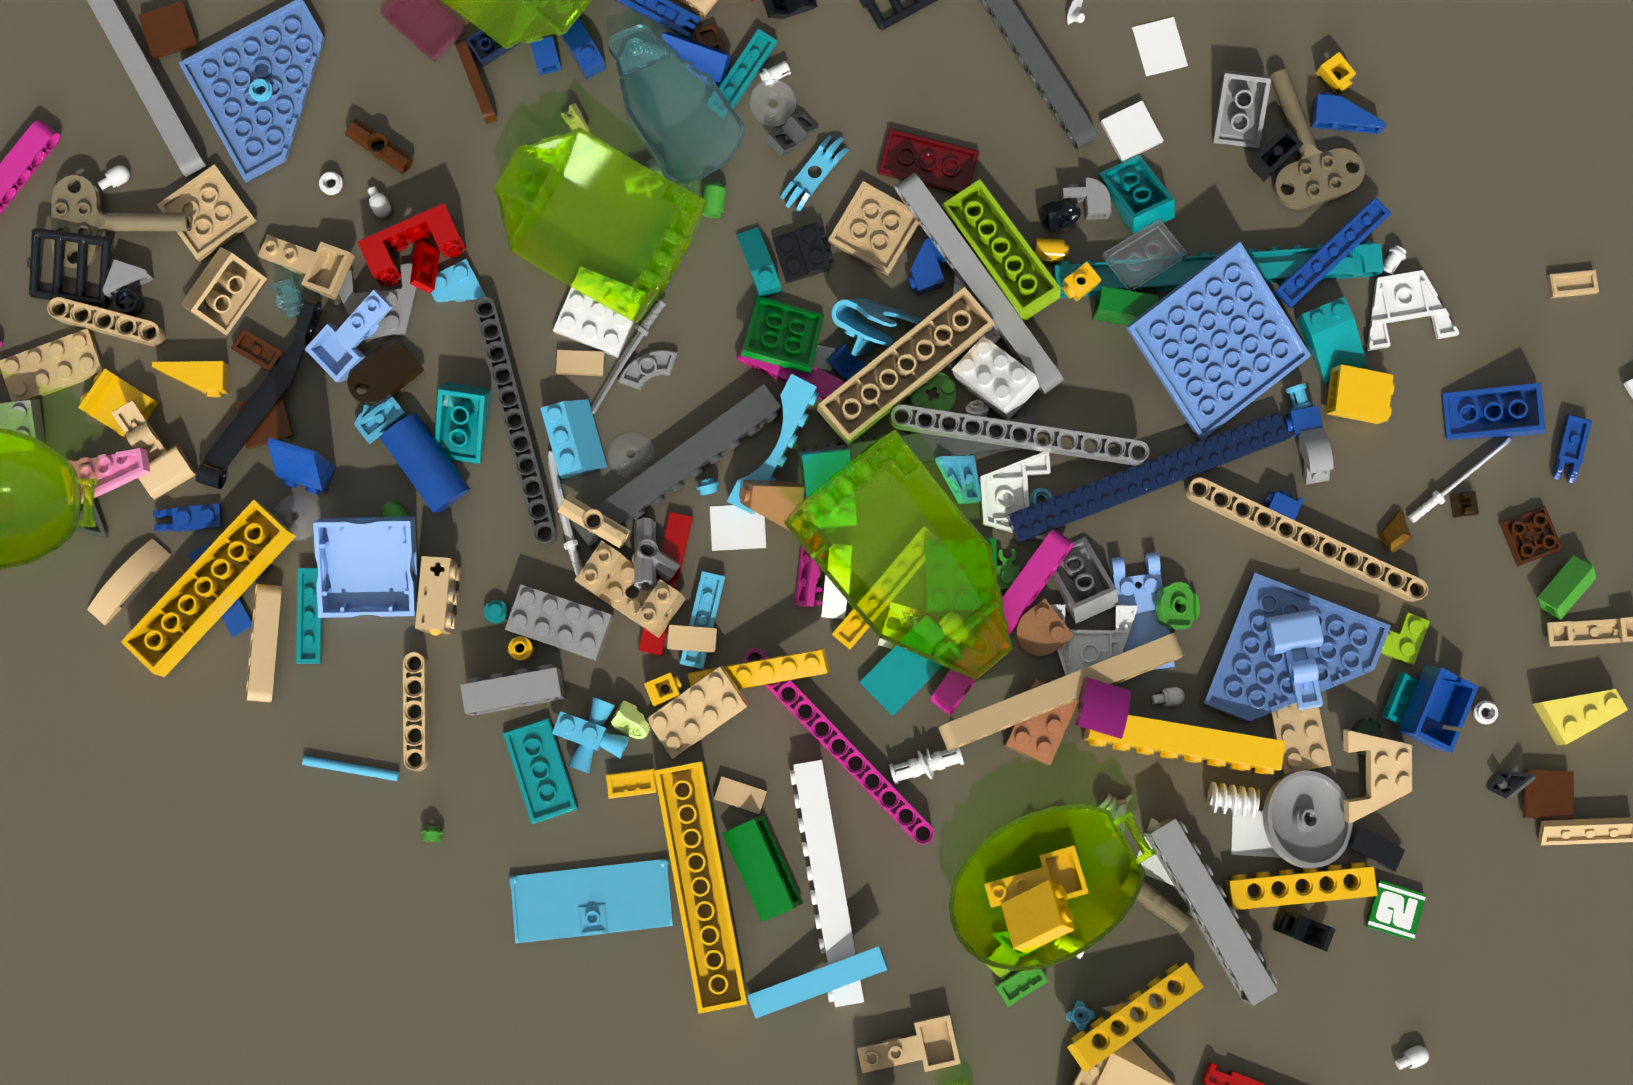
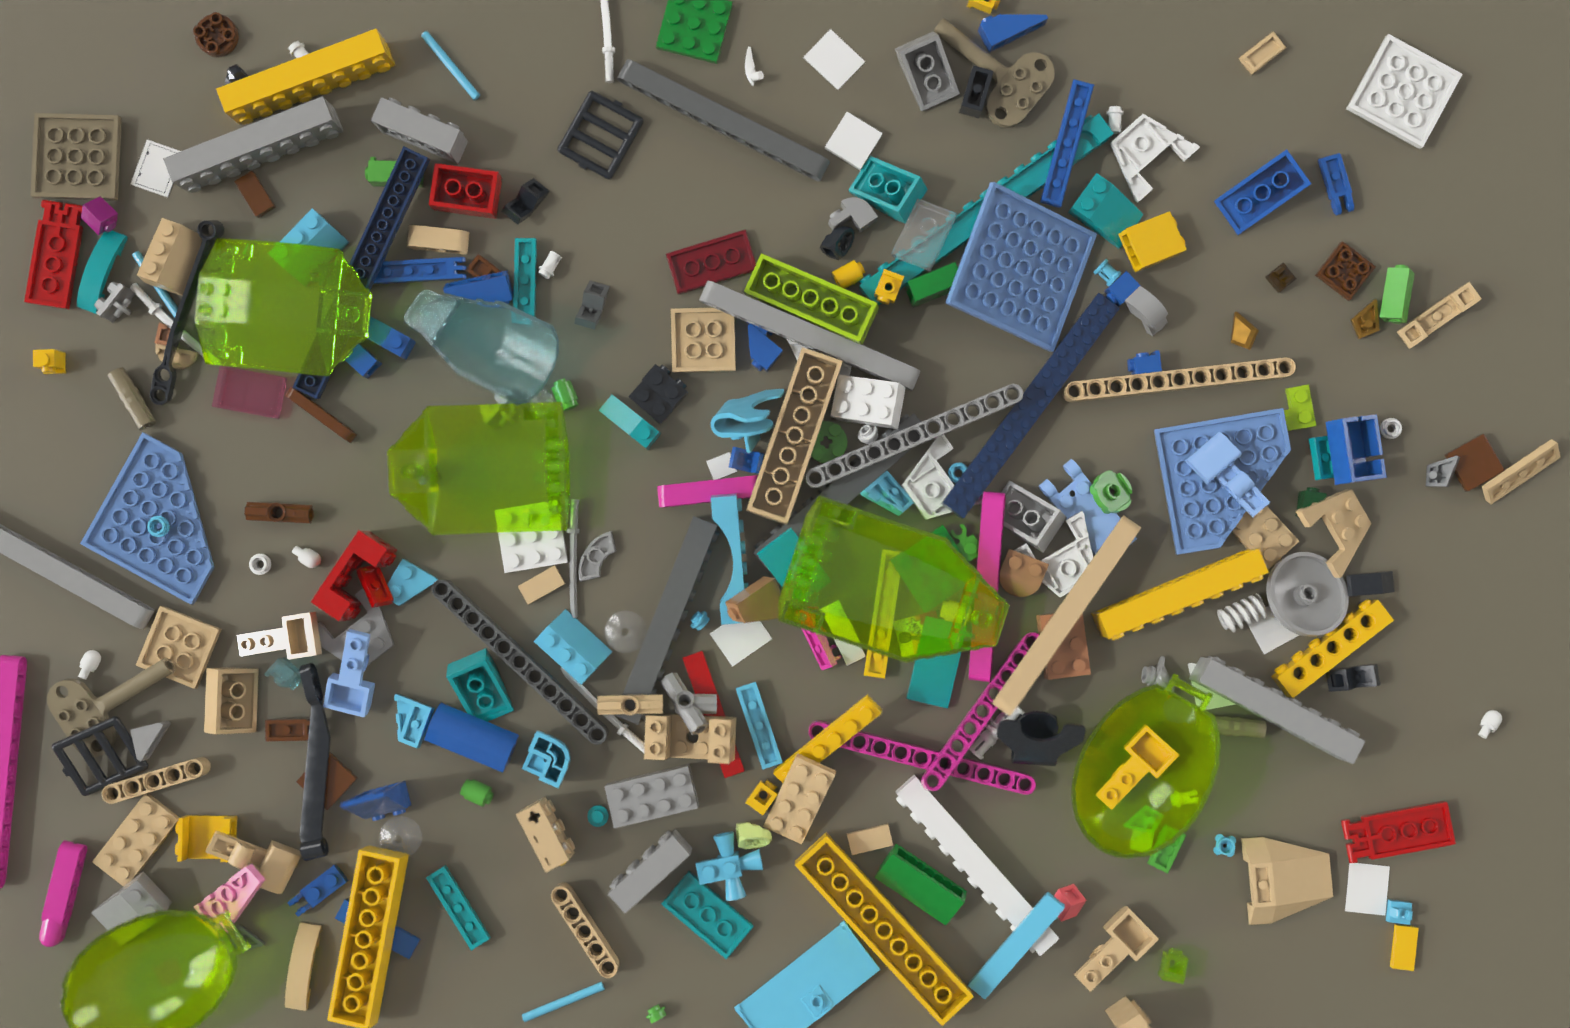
camera: 25 degrees left, 5 degrees up
(123, 300) = (159, 757): black wheel -> none
(168, 29) = (55, 522): reddish brown tile -> none
(204, 376) = (260, 775): yellow slope -> none
(263, 643) = (436, 950): tan beam -> none
(366, 566) = (477, 845): light blue tile -> none
(384, 372) = (395, 686): dark brown tile -> none
(483, 525) = (547, 759): none -> medium azure brick
(528, 652) = (640, 828): yellow brick -> none
(575, 118) = (417, 397): piece -> none
(631, 783) = (782, 882): yellow plate -> none
(692, 638) = (760, 745): tan tile -> none
(772, 90) = (551, 287): clear dish -> none
(783, 335) = (684, 469): green plate -> none
(808, 184) = (624, 336): medium azure piece -> none
(896, 977) = (1072, 899): none -> coral panel
(911, 737) = (973, 718): none -> dark pink beam
(962, 794) = (1036, 738): none -> black piece
(1037, 916) = (1152, 797): yellow brick -> none
(1103, 708) = (1107, 609): magenta slope -> none
(1169, 697) = (1146, 564): white cylinder -> none
(1185, 986) = (1292, 778): yellow brick -> none
(1395, 910) = (1412, 620): tile -> none
(1437, 498) = (1258, 285): white sword -> none
(1523, 595) = (1367, 320): none -> pearl gold piece
(1577, 715) = (1463, 387): light yellow wedge -> none

